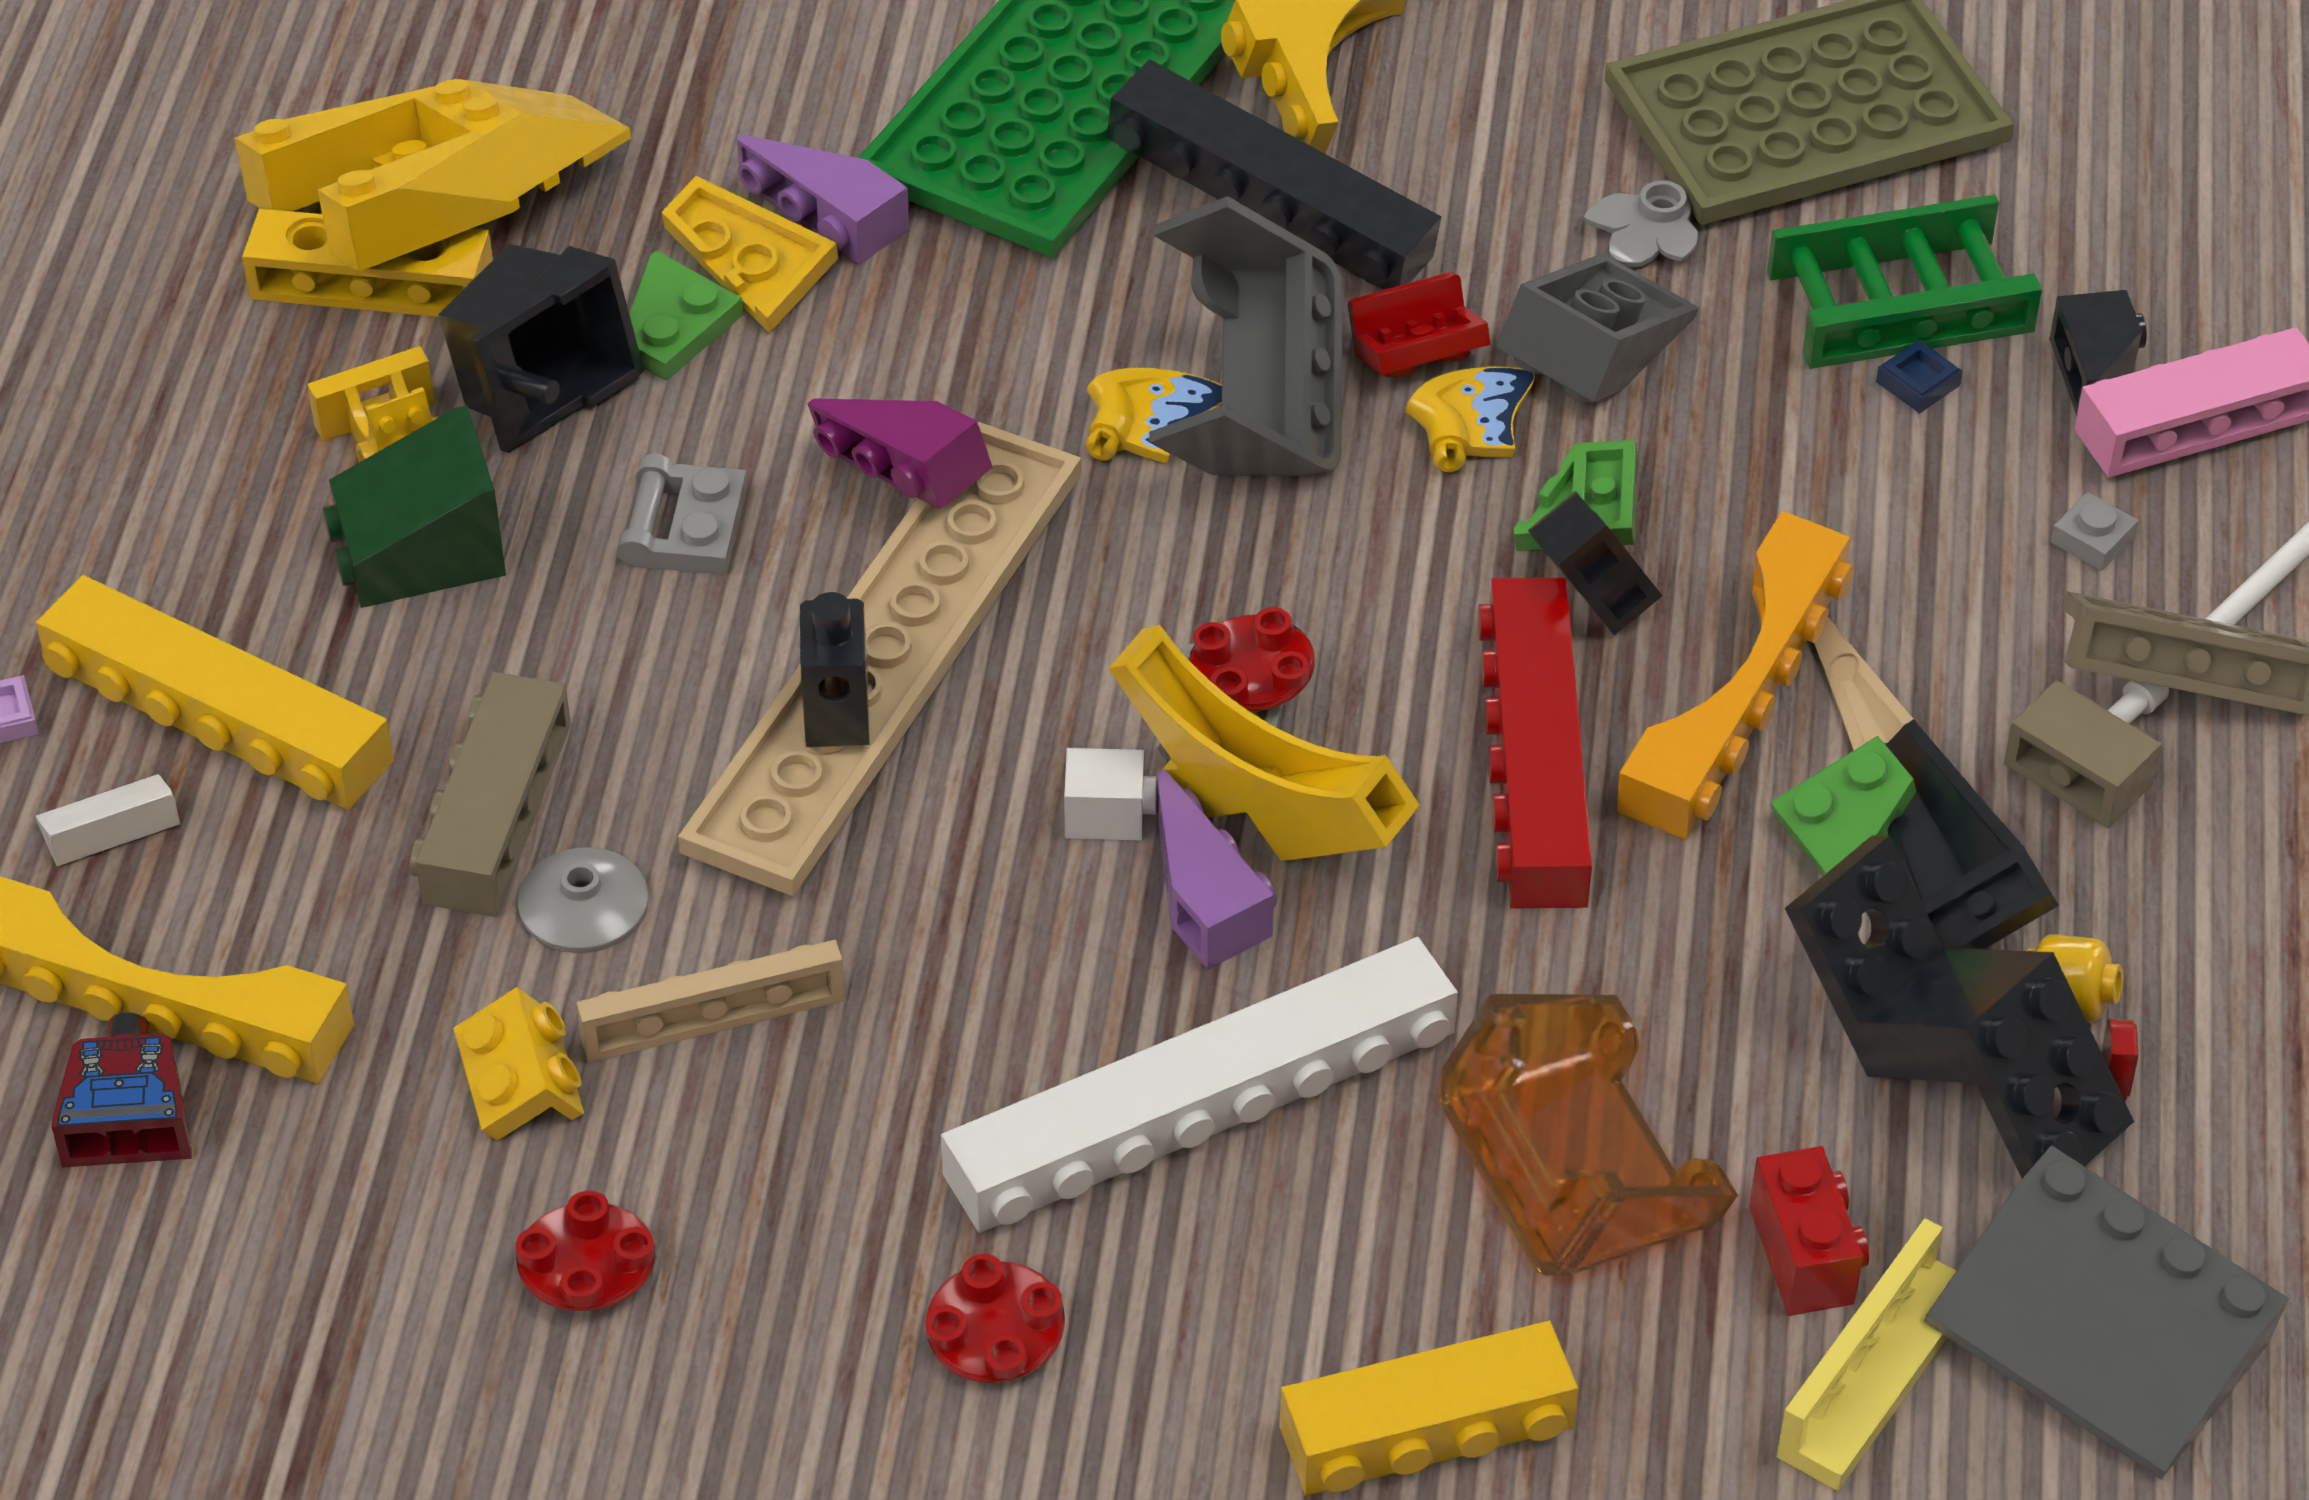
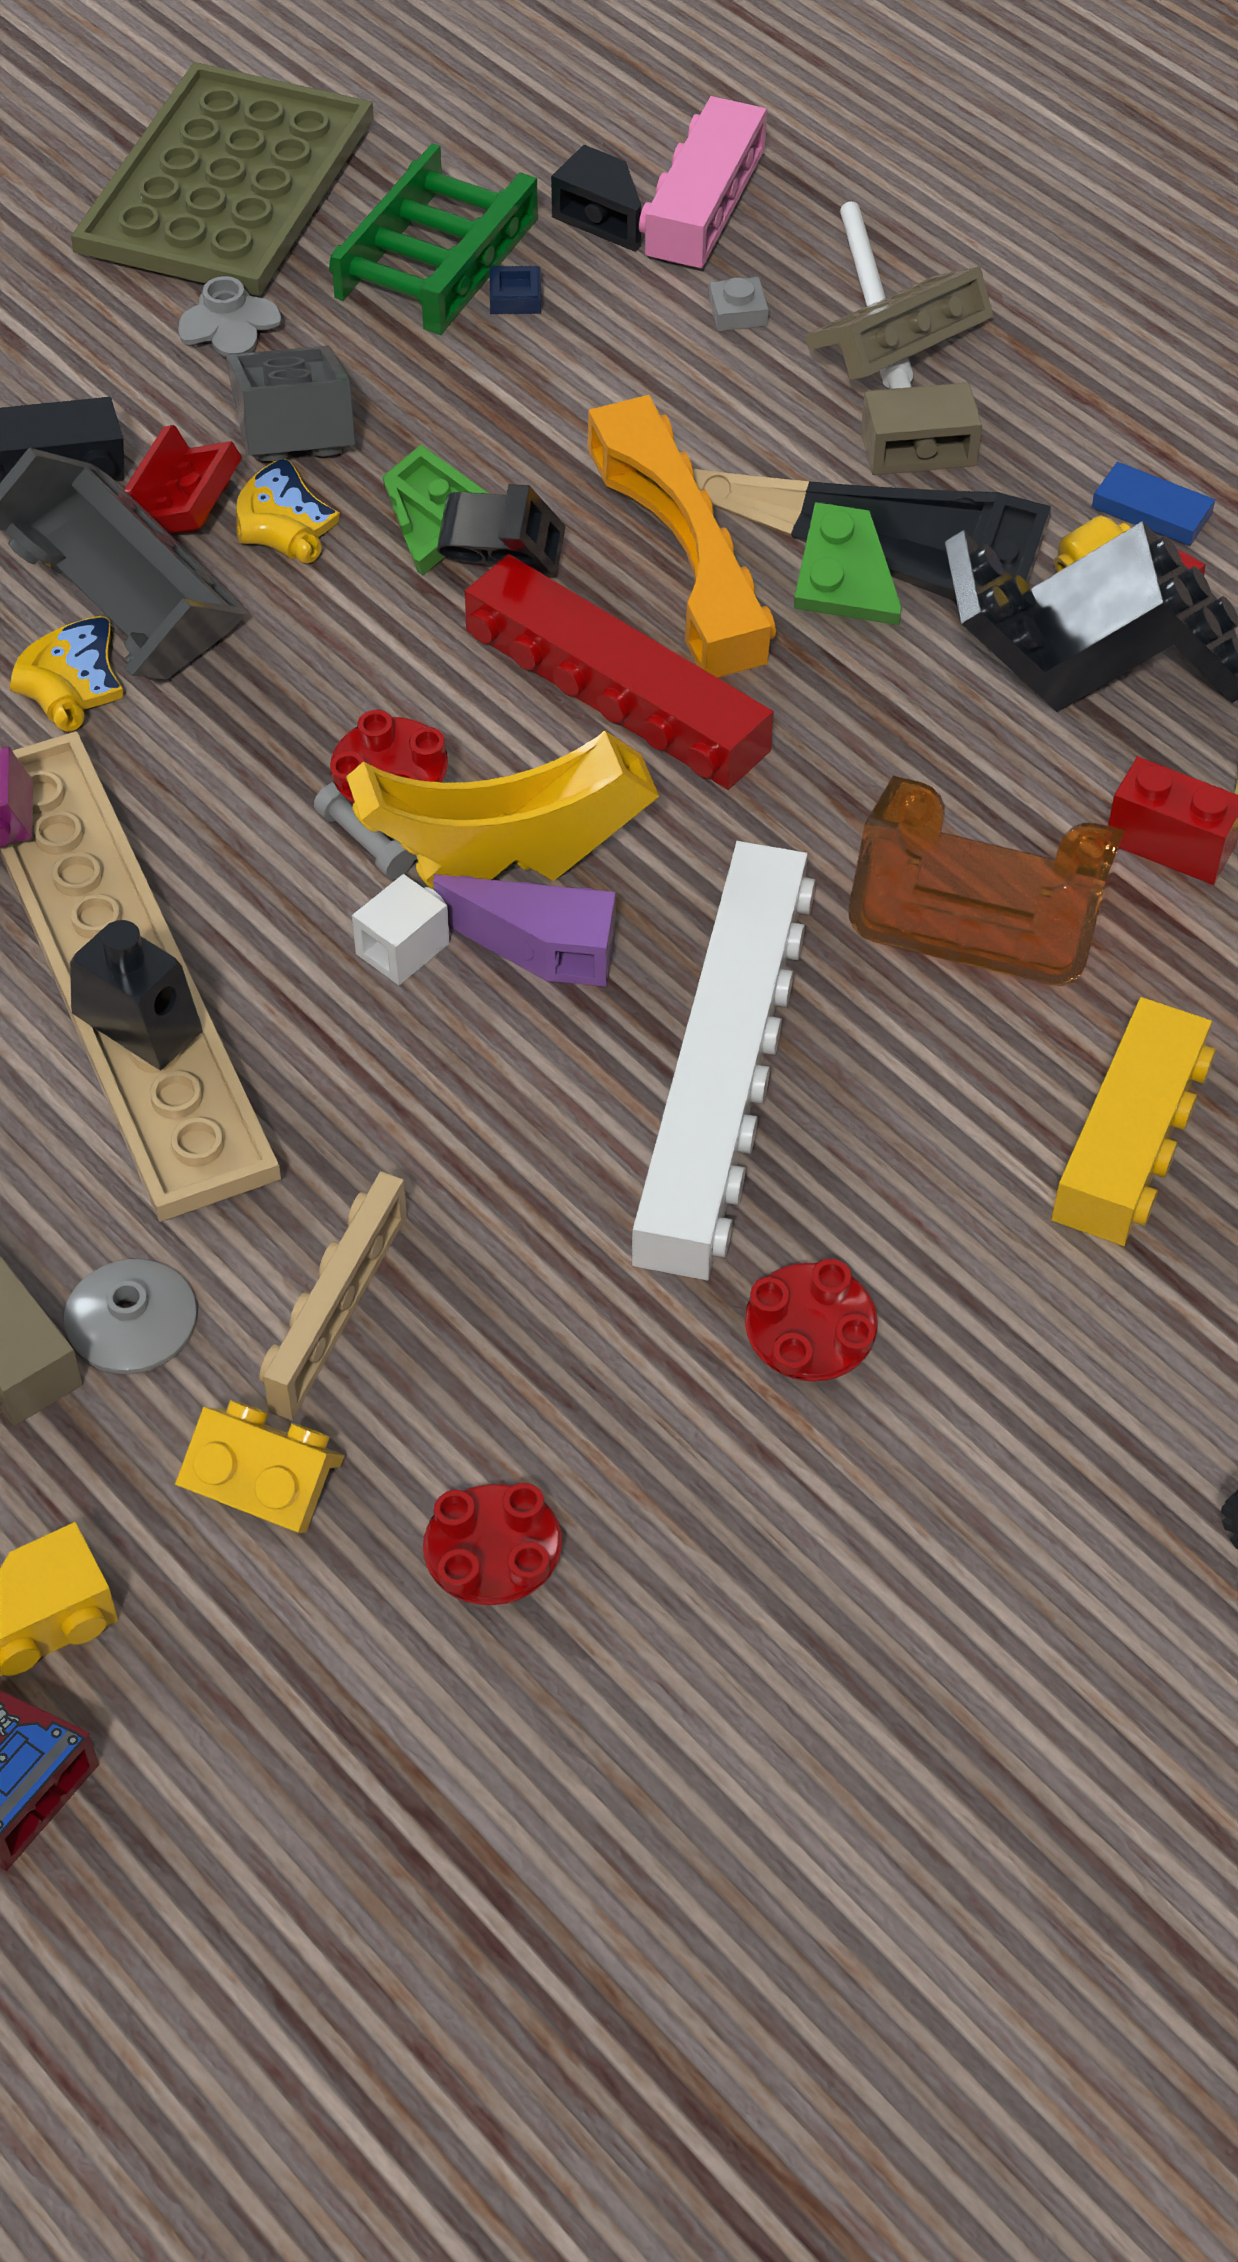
camera: 50 degrees left, 5 degrees up
(2208, 982) = (1156, 502): none -> blue tile

